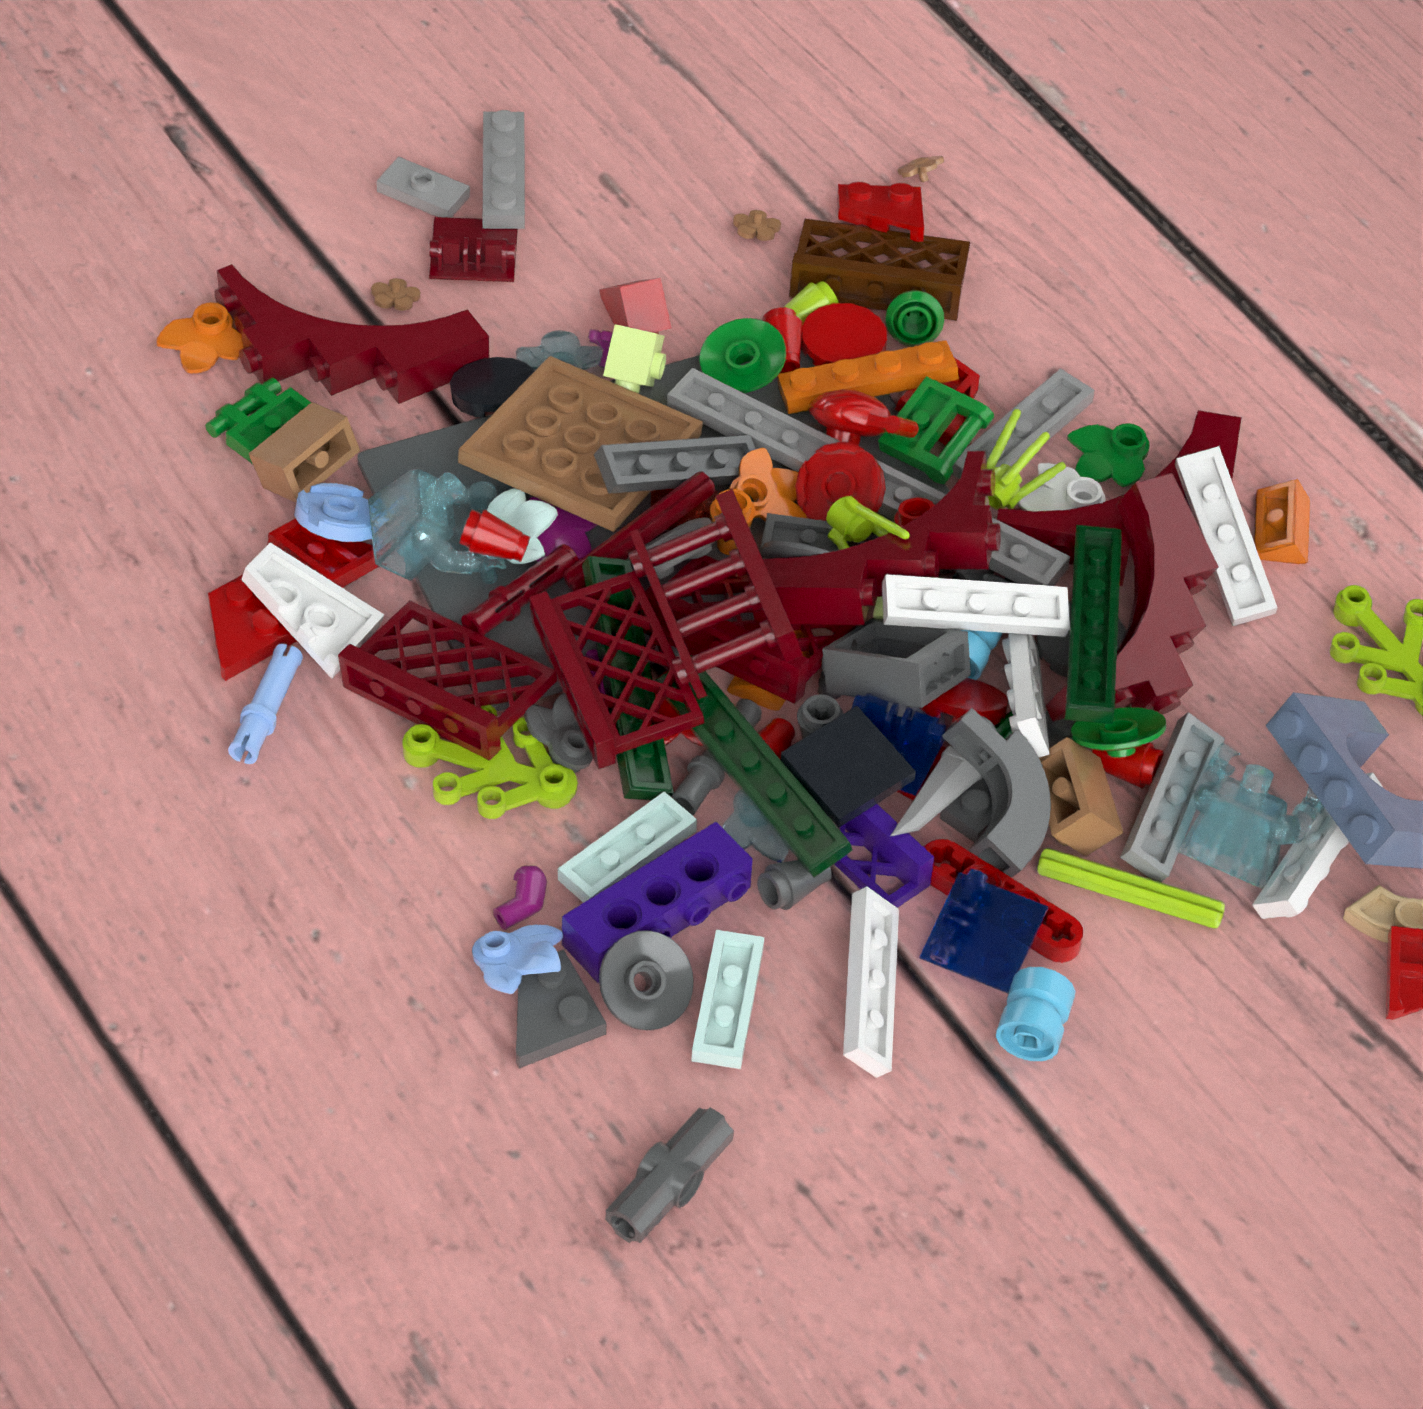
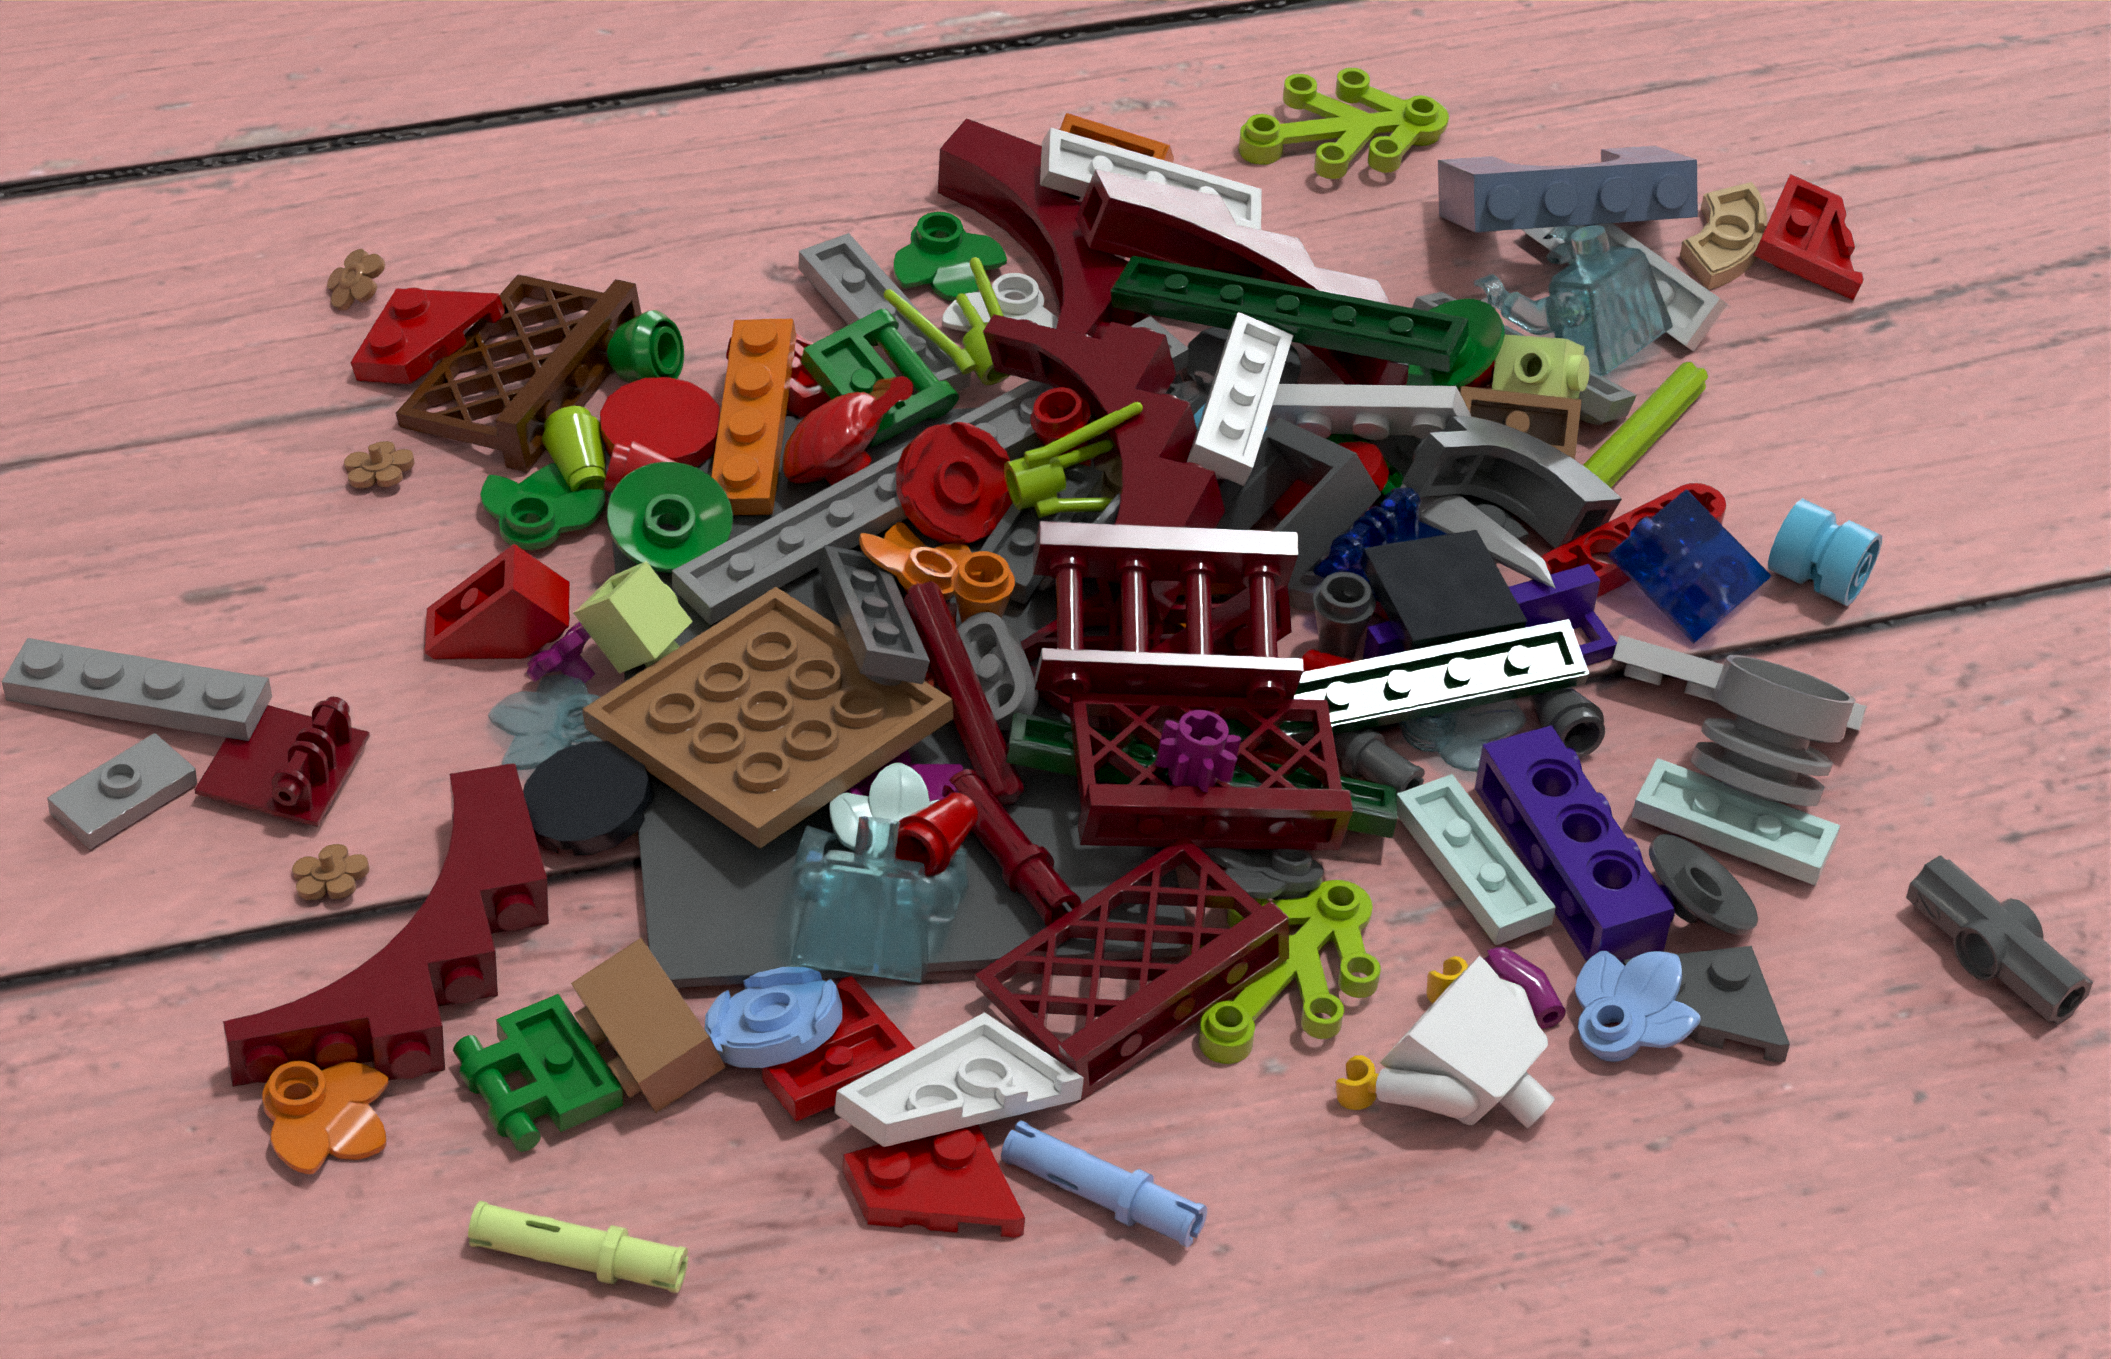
camera: 75 degrees left, 5 degrees down
(135, 483) = (607, 1253): none -> yellowish green pin
(436, 863) = (1460, 1052): none -> white torso
(596, 639) = (1198, 750): none -> magenta gear
(745, 299) = (539, 507): none -> green plate
(792, 983) = (1768, 742): none -> light grey wheel
(1130, 791) = (1541, 366): none -> yellowish green brick

